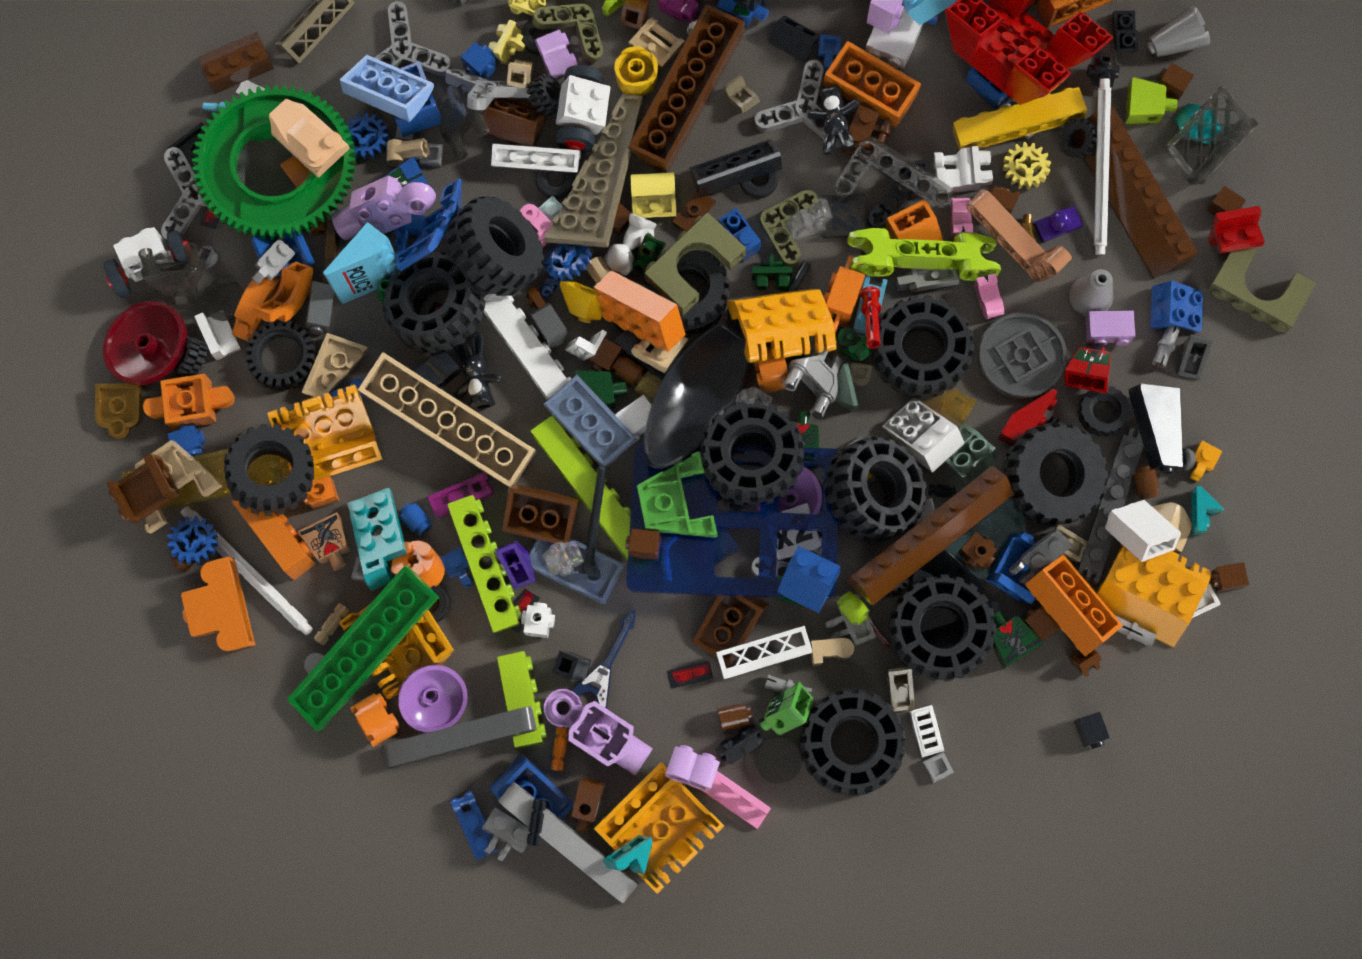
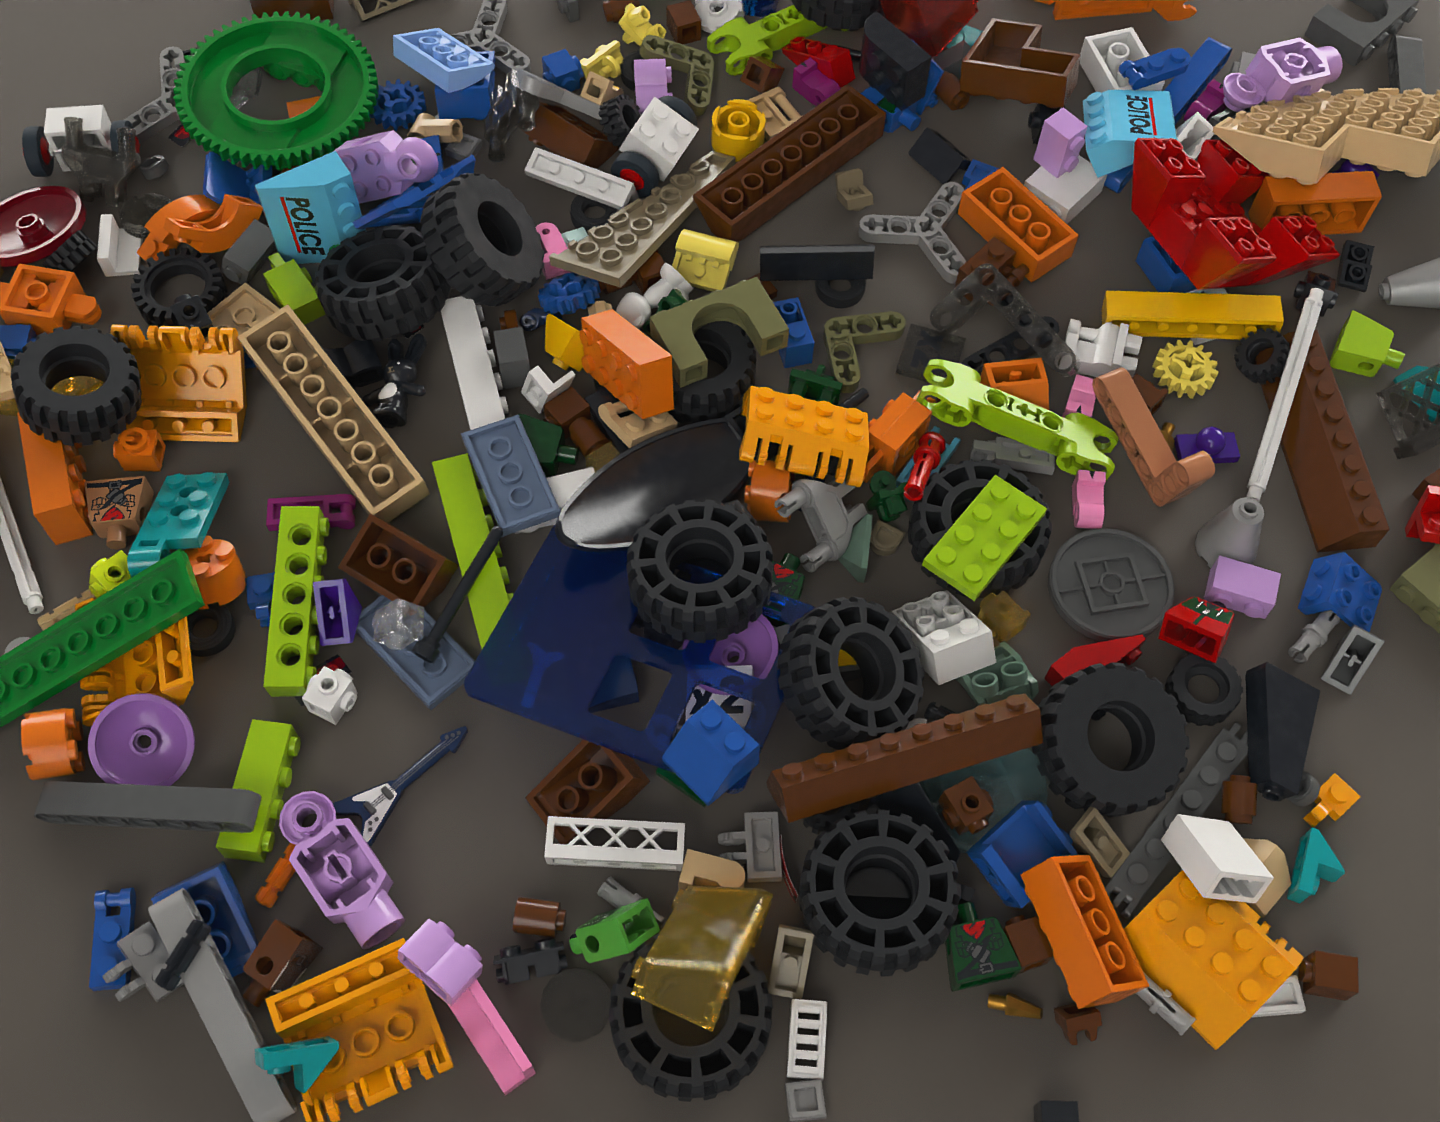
camera: 15 degrees right, 15 degrees down
(273, 261) = (217, 181): light grey hinge -> none
(306, 136) = (323, 70): light nougat slope -> none
(313, 386) = (187, 304): none -> black brick
(353, 593) = (108, 574): none -> neon yellow brick
(364, 326) = (293, 287): none -> lime hinge
(415, 519) = (239, 521): blue brick -> none
(571, 666) = (345, 767): black brick -> none
(644, 544) = (509, 636): reddish brown brick -> none
(665, 503) = (560, 598): bright green wing -> none
(690, 674) = (504, 840): sticker -> none
(810, 222) = (885, 346): clear brick -> none
(835, 122) = (958, 241): black animal -> none
(848, 703) = (701, 950): none -> clear yellow windscreen
(853, 608) = (762, 824): lime brick -> none
(931, 359) = (984, 537): none -> lime plate
(1041, 555) = (1058, 838): dark grey hinge -> none
(1044, 665) = (1014, 1006): none -> pearl gold bar
(1175, 79) = (1409, 333): reddish brown brick -> none

